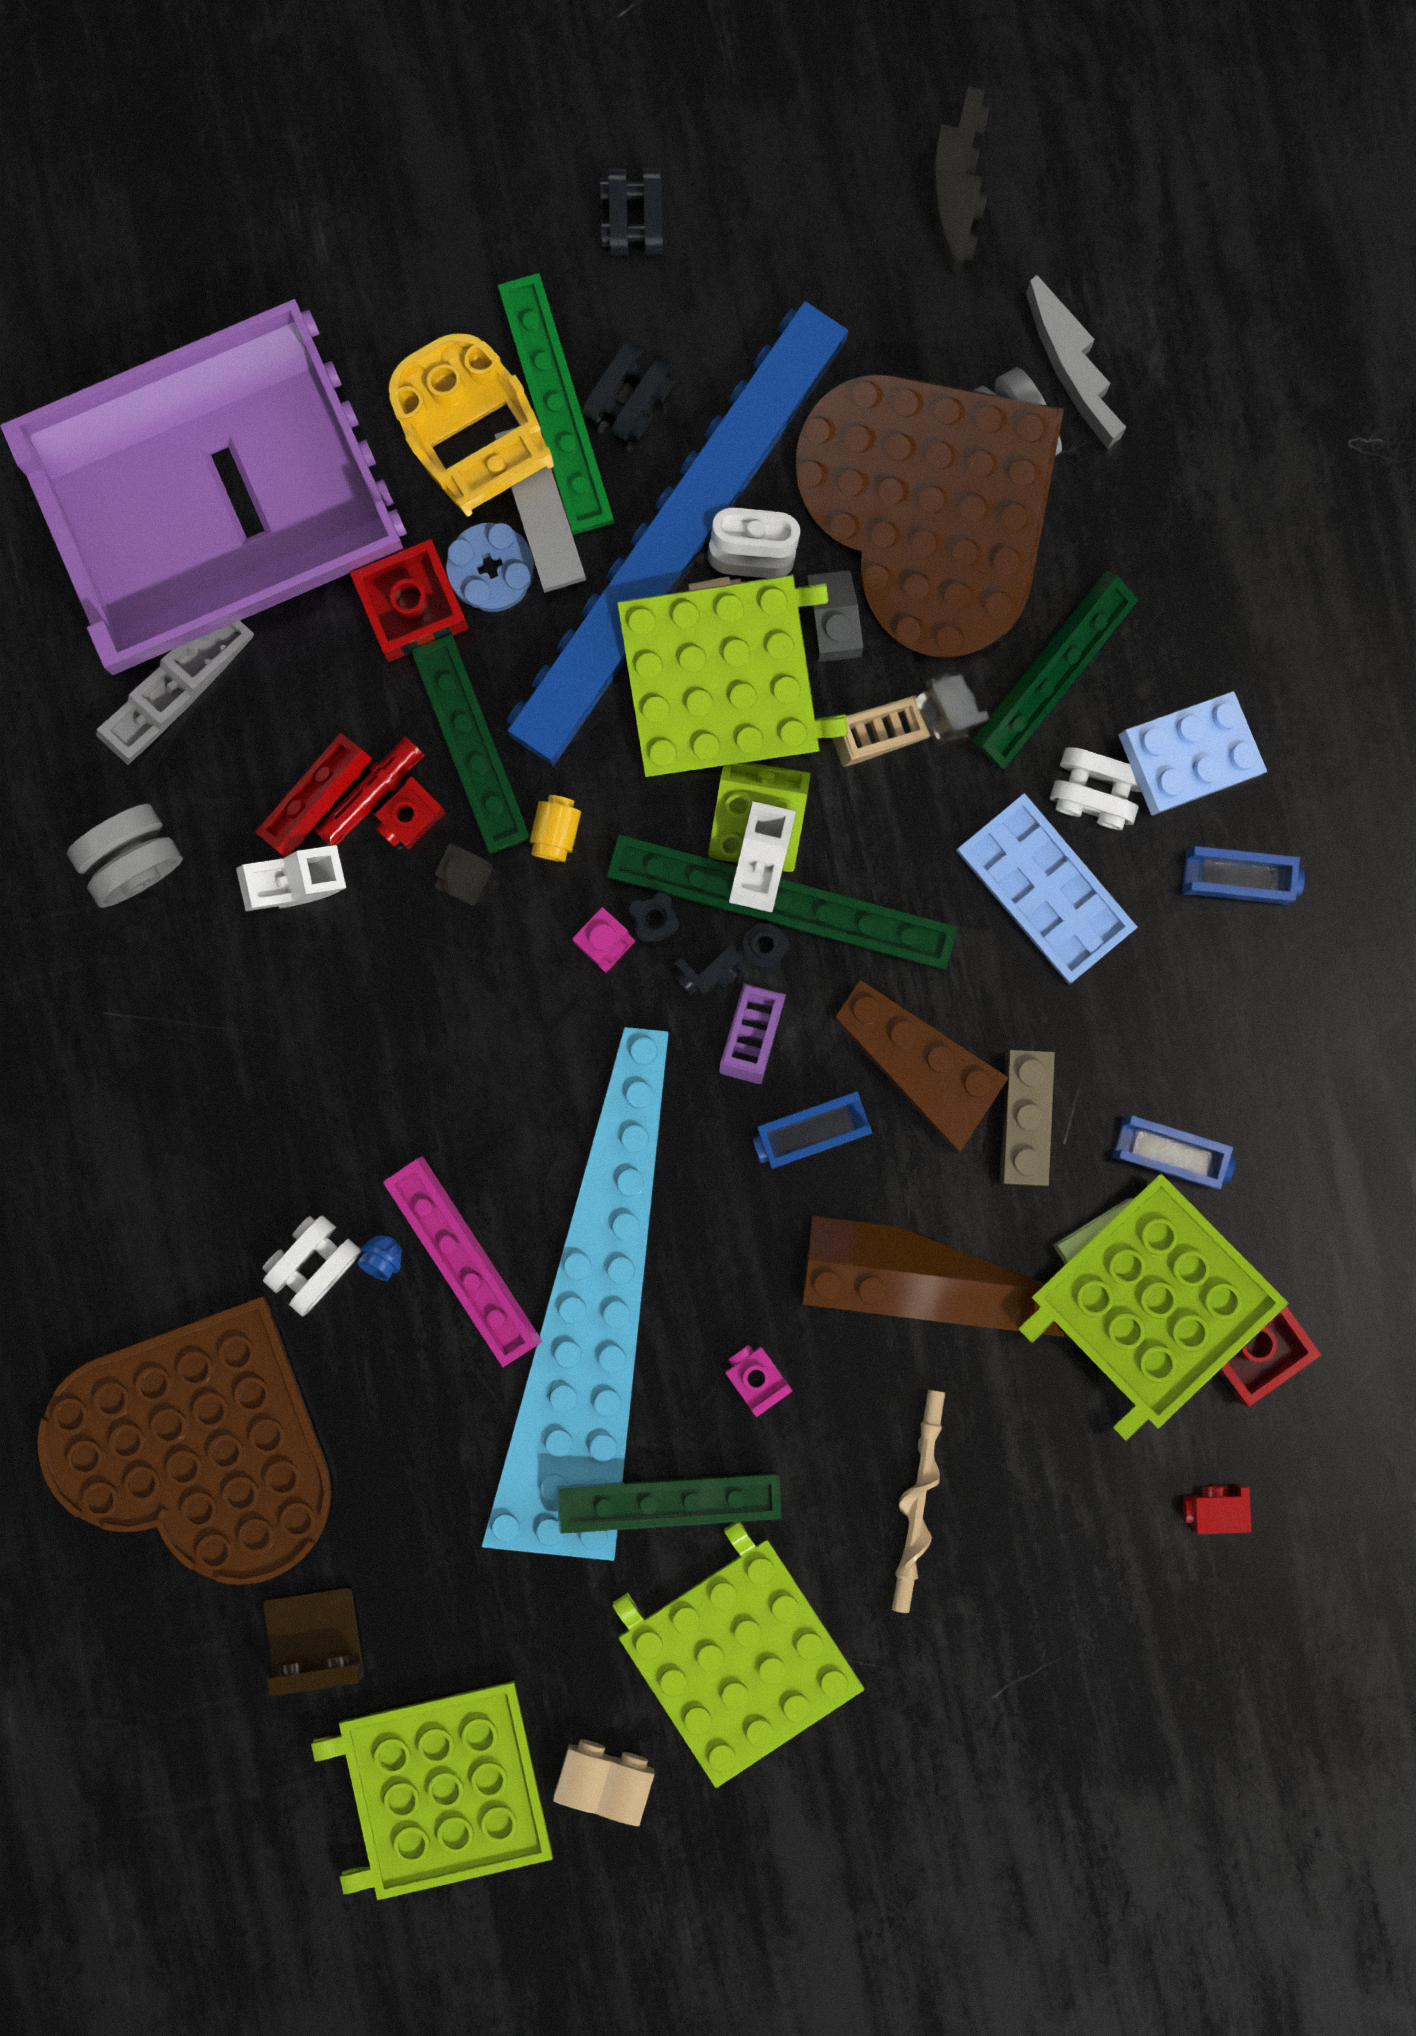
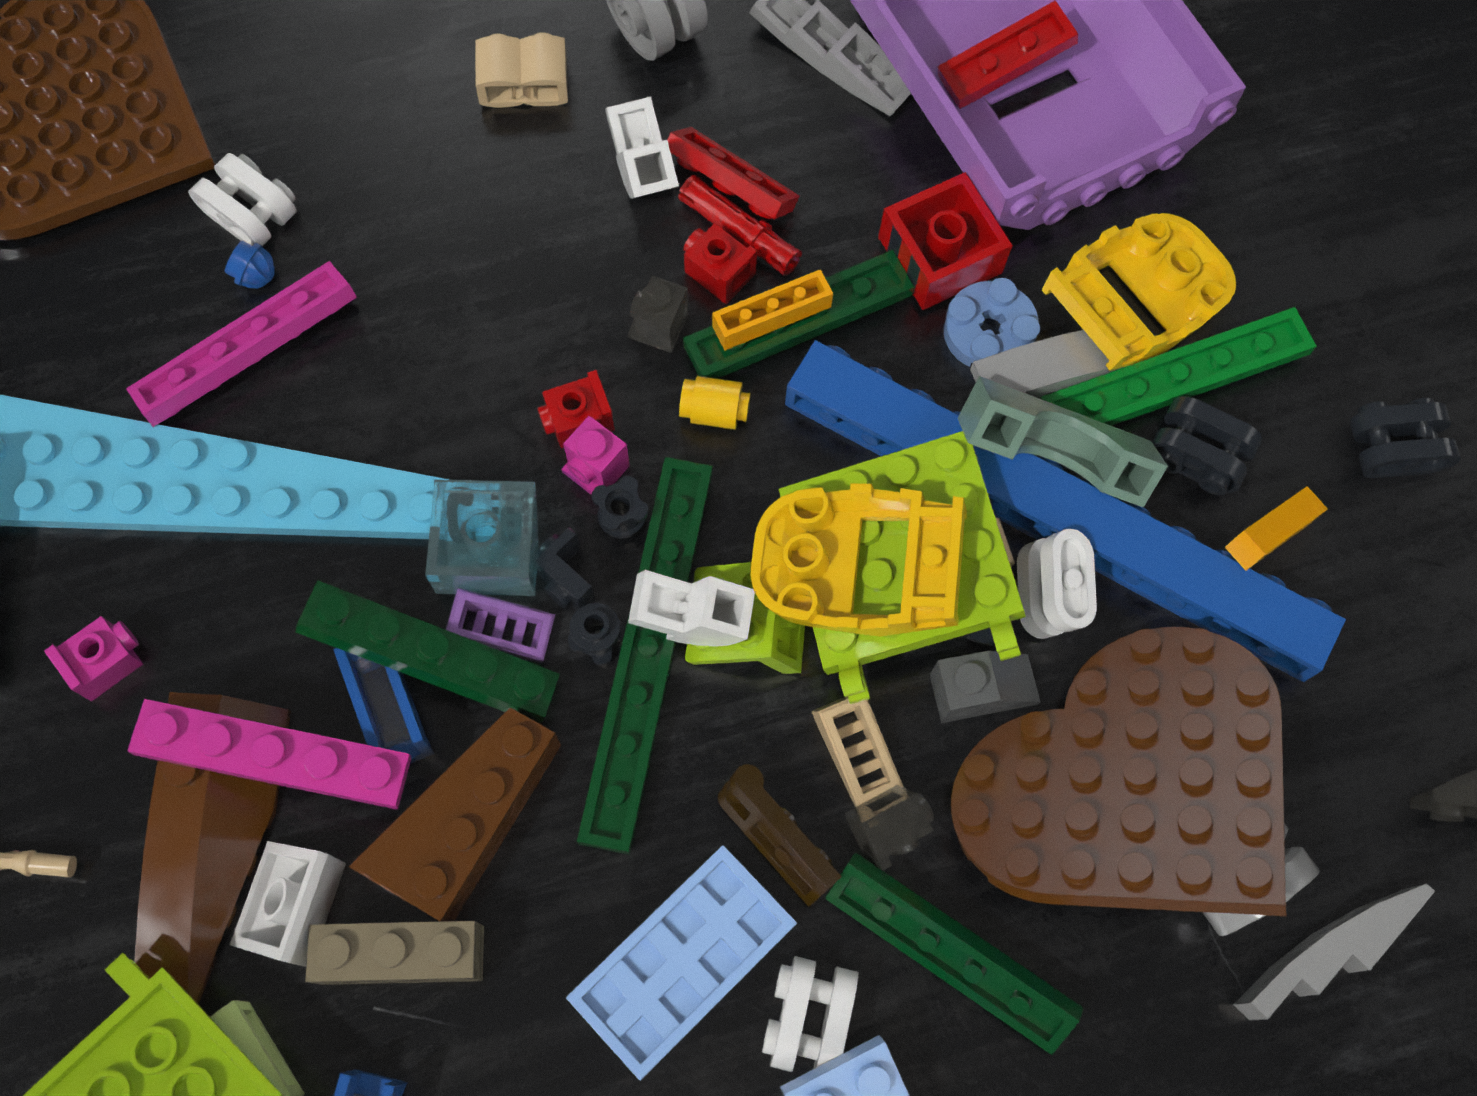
camera: 85 degrees right, 15 degrees down
(181, 994) = (521, 70): none -> tan brick
(213, 515) = (1007, 54): none -> red plate
(472, 767) = (772, 309): none -> light orange piece
(548, 937) = (586, 394): none -> red brick
(642, 478) = (1019, 423): none -> sand green arch
(676, 1037) = (483, 537): none -> clear light blue slope
(715, 343) = (1276, 528): none -> light orange piece
(728, 752) = (810, 558): none -> yellow slope
(780, 1087) = (426, 652): none -> dark green plate
(865, 1213) = (270, 754): none -> dark pink plate
(951, 803) = (777, 834): none -> dark brown plate
(978, 1212) = (287, 895): none -> white slope

